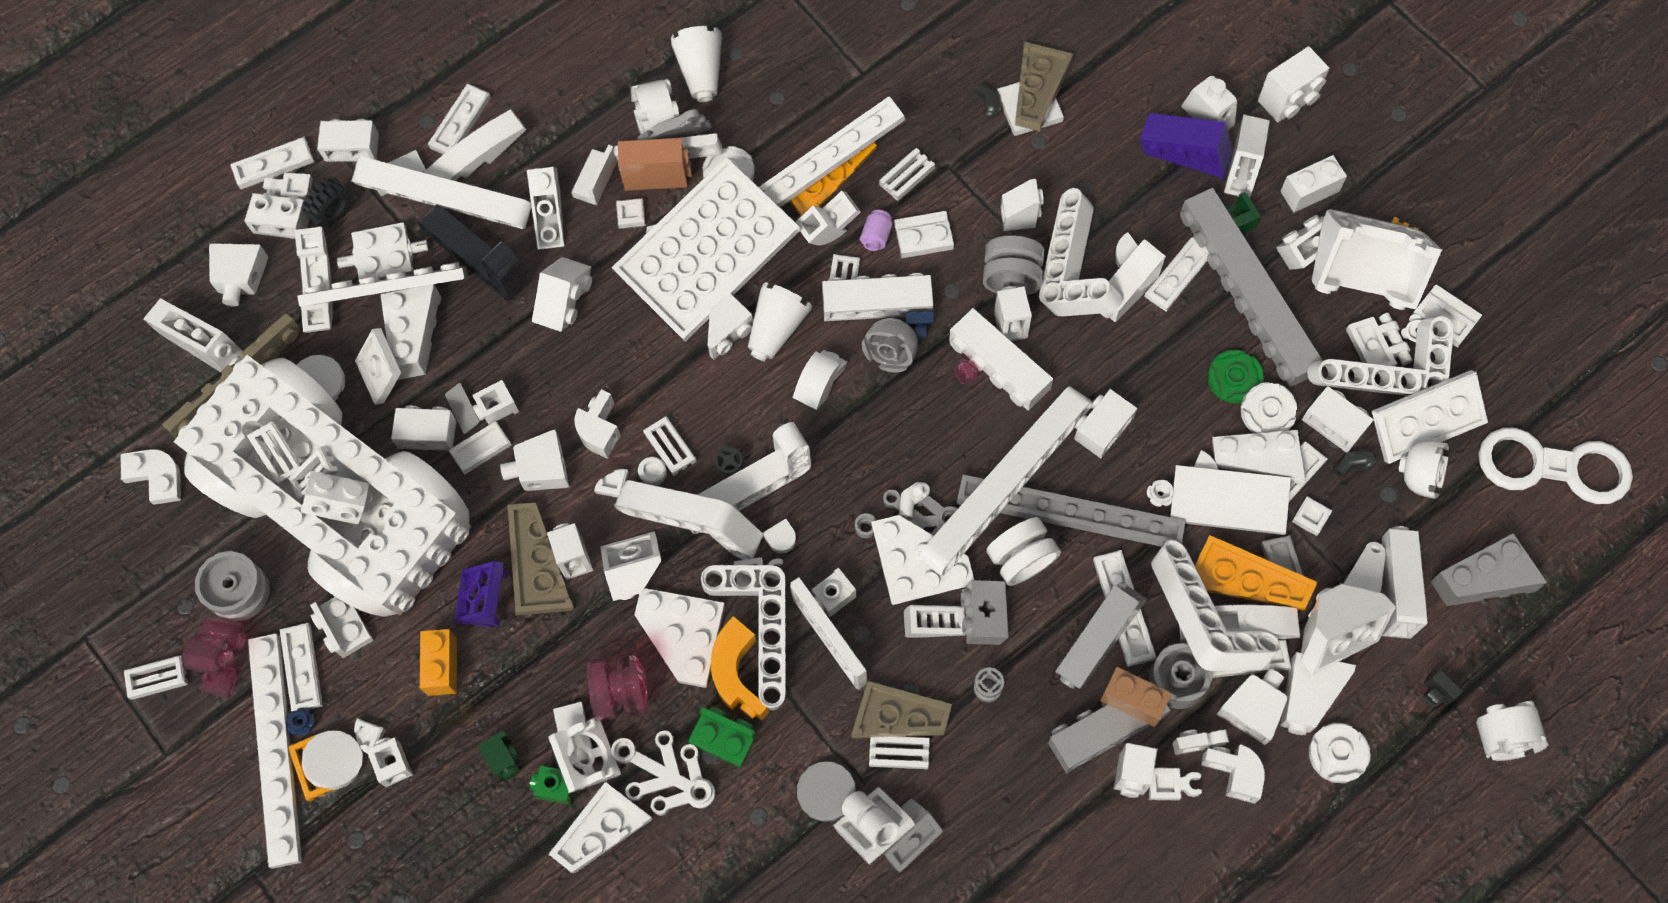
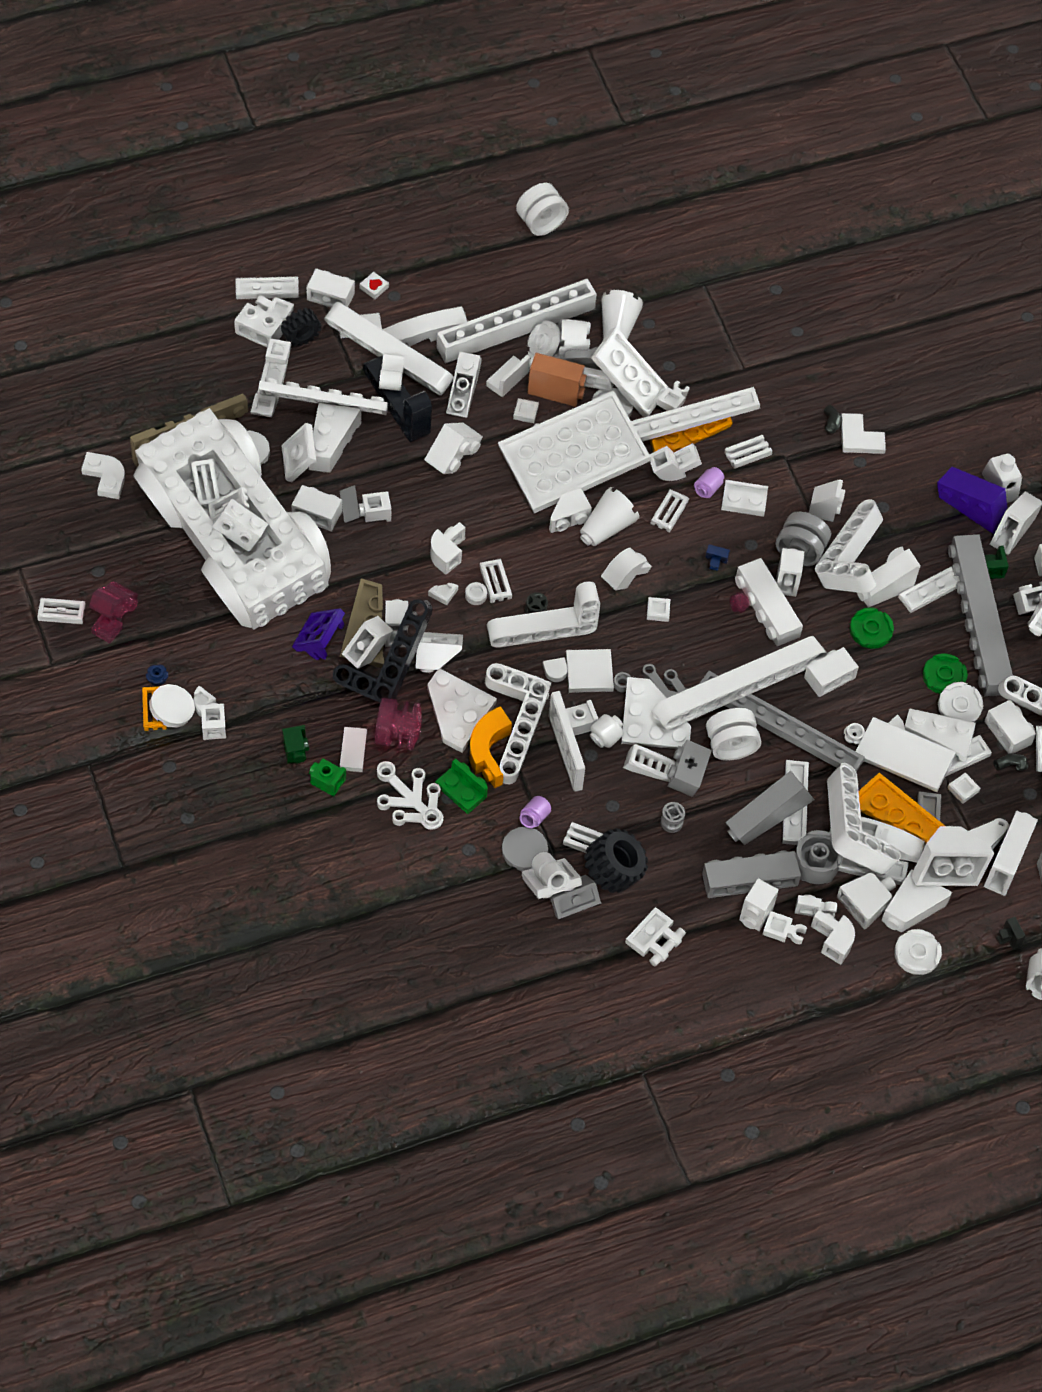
camera: 10 degrees right, 10 degrees down
(193, 335) = (169, 387): white slope -> none
(232, 586) = (140, 565): light grey wheel -> none
(236, 270) = (215, 353): white torso -> none
(273, 751) = (130, 687): white plate -> none
(301, 667) = (169, 638): white tile -> none
(341, 625) = (210, 620): white bracket -> none
(382, 251) = (329, 374): white plate -> none
(398, 116) = (374, 285): none -> white tile
(438, 662) = (272, 667): light orange brick -> none
(455, 224) = (391, 372): none -> white panel
(459, 119) = (420, 302): white tile -> none
(480, 447) = (353, 535): white tile -> none
(538, 463) = (393, 559): white torso -> none
(543, 594) = (367, 642): none -> white brick
(573, 779) = (365, 778): white piece -> none
(580, 105) = (515, 320): none -> white brick
(584, 604) = (392, 659): none -> black beam
(598, 828) = (349, 815): white wing -> none
(621, 119) = (544, 339): none -> white tile
(691, 513) = (496, 624): white beam -> none
(736, 126) = (629, 372): none -> white tile
(796, 138) = (673, 397): none -> white plate
(821, 524) = (589, 670): none -> white tile
(822, 741) = (535, 812): none -> lavender brick
(870, 600) = (606, 731): none -> white head
(874, 413) = (658, 609): none -> white tile
(876, 297) = (689, 527): white brick -> none
(891, 344) = (688, 563): light grey cylinder -> none
(899, 713) = (597, 813): dark tan wing -> none
(911, 497) = (665, 672): white arm -> none
(928, 785) = (616, 860): none -> black tyre
(1015, 851) = (650, 931): none -> white plate
(1040, 82) = (875, 419): dark tan wing -> none
(1129, 348) = (871, 628): none -> green tile
(1136, 697) = (777, 853): medium nougat brick -> none

